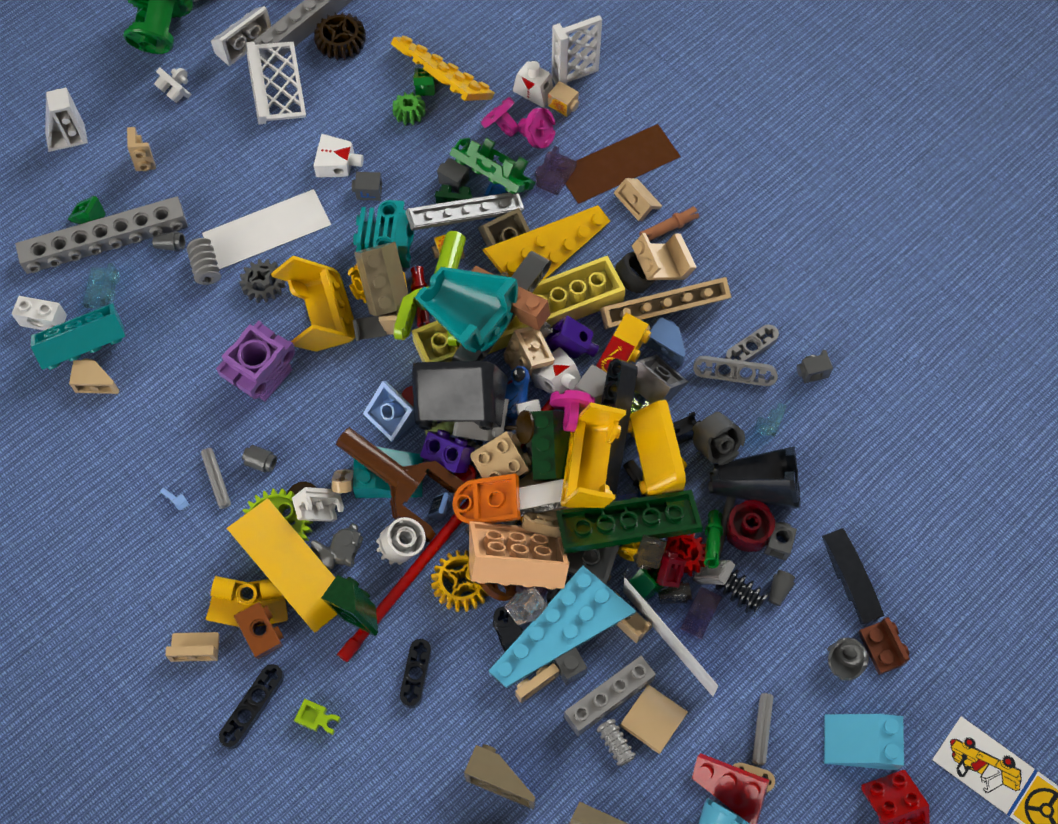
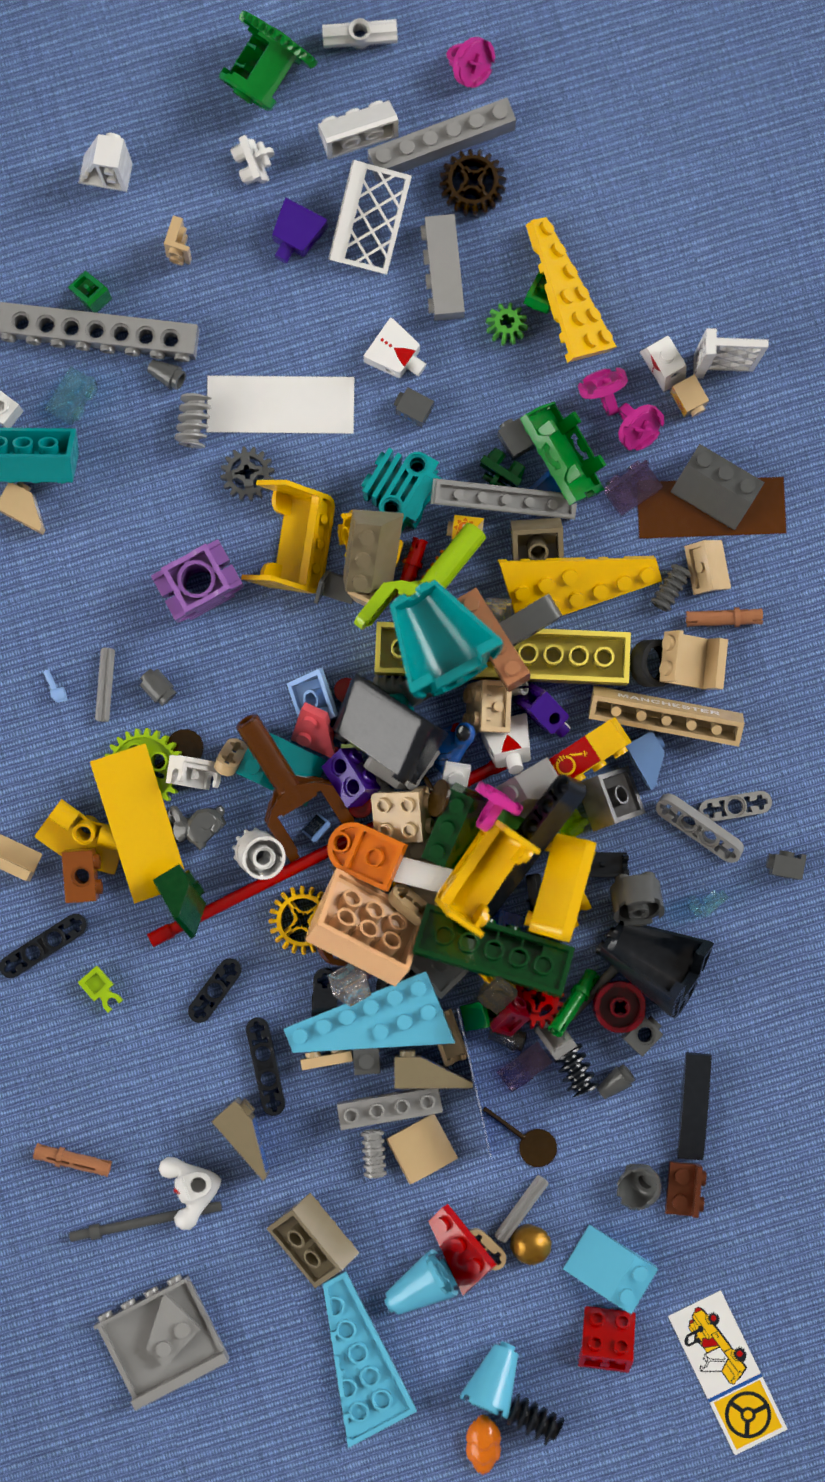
camera: 25 degrees right, 20 degrees up
(226, 112) = (297, 230): none -> dark purple torso
(345, 93) = (444, 267): none -> light grey brick
(400, 431) = (314, 730): none -> coral wing
(486, 716) = (264, 1066): none -> black beam
(615, 144) = (717, 487): none -> dark grey slope
(619, 221) = (671, 587): none -> dark grey piece
(621, 648) = (420, 1072): none -> dark tan slope
(746, 672) = (536, 1146): none -> dark brown piece
(786, 755) = (530, 1244): none -> pearl gold hair

